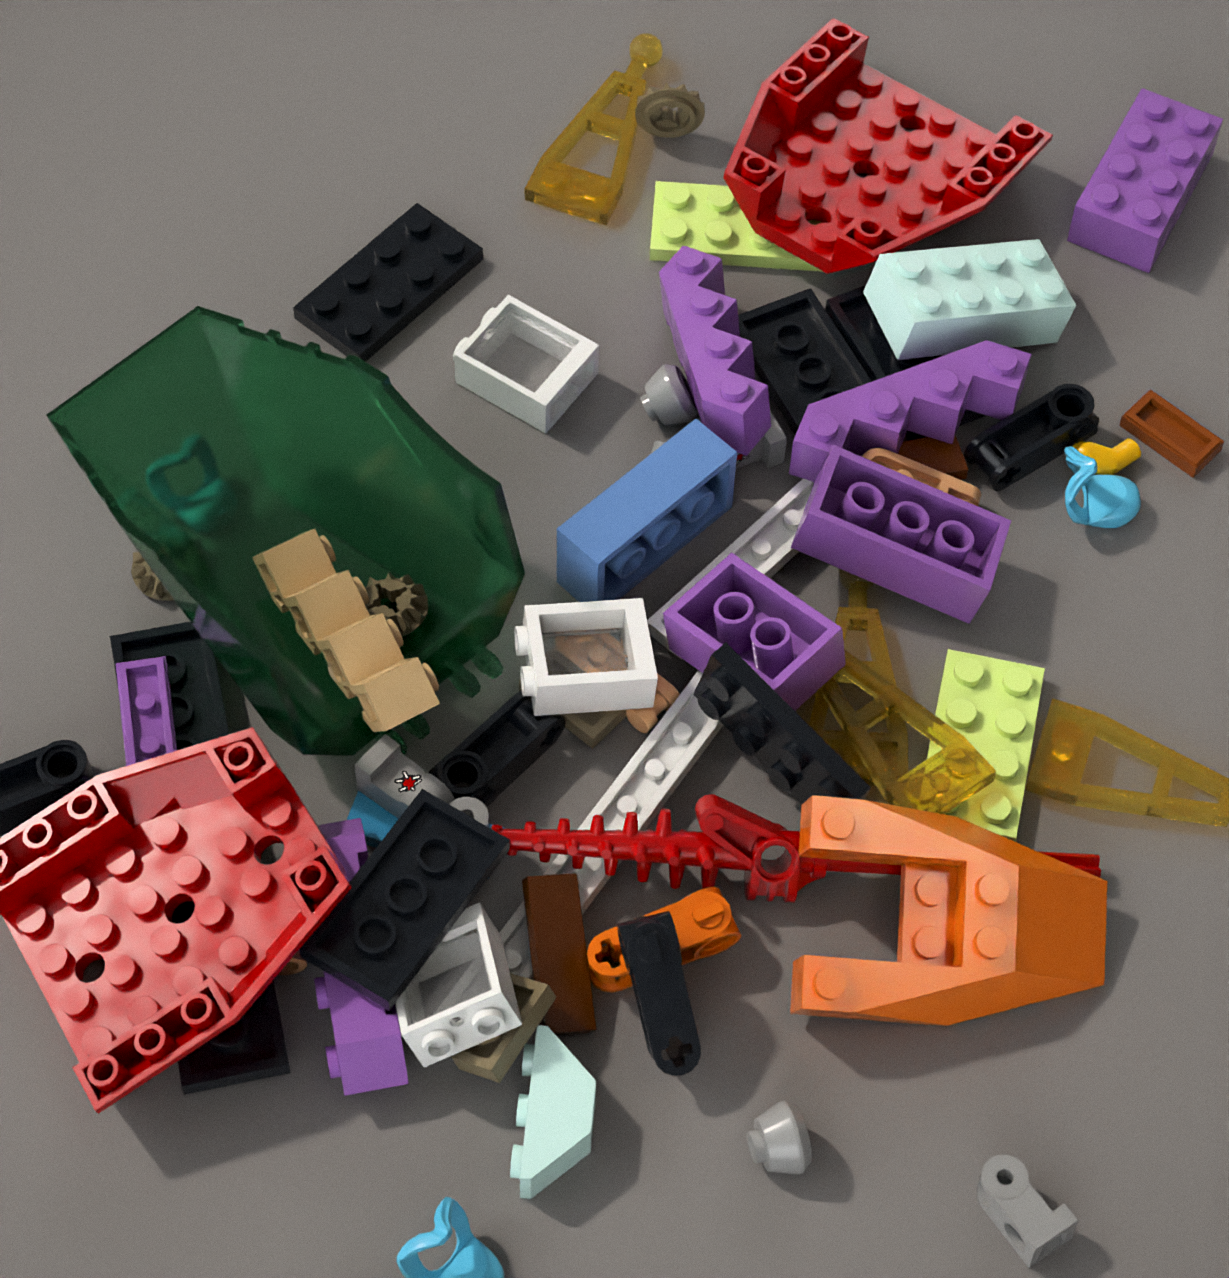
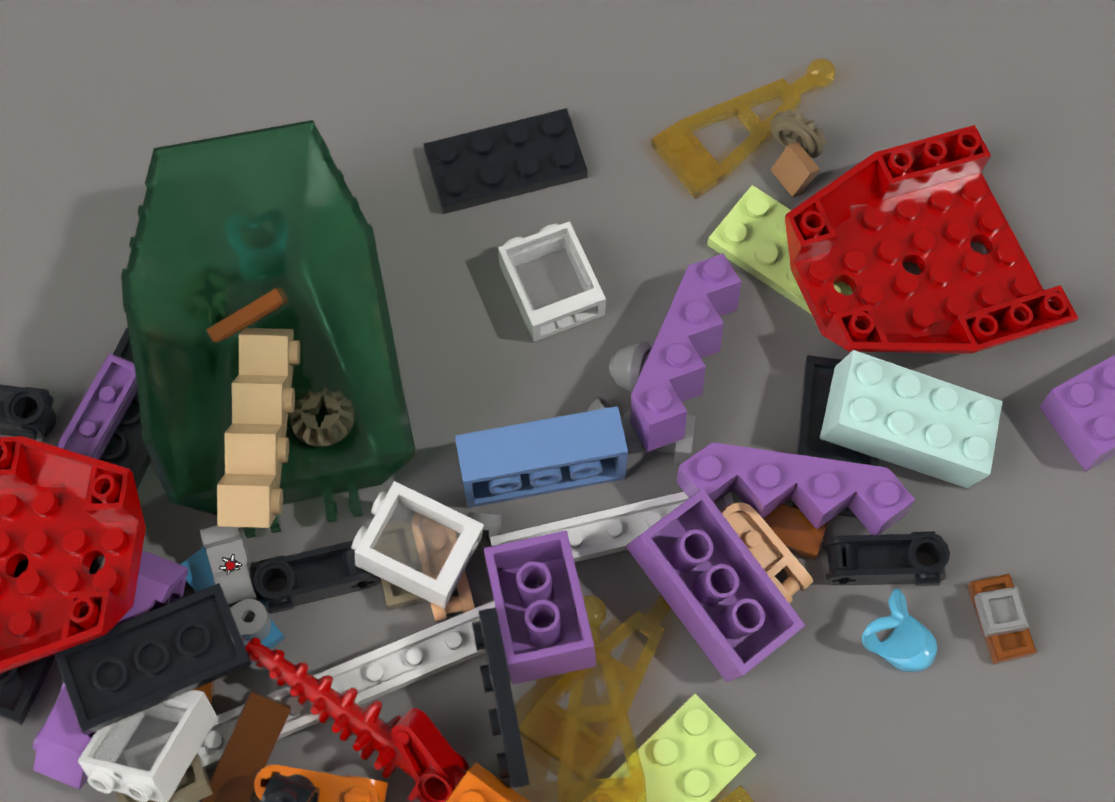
camera: 35 degrees right, 10 degrees up
(253, 536) = (248, 315): none -> dark orange tile
(688, 145) = (795, 169): none -> medium nougat tile
(799, 353) = (757, 391): black plate -> none
(1110, 460) = (928, 611): yellow arm -> none
(1169, 422) = (1001, 611): none -> light grey tile

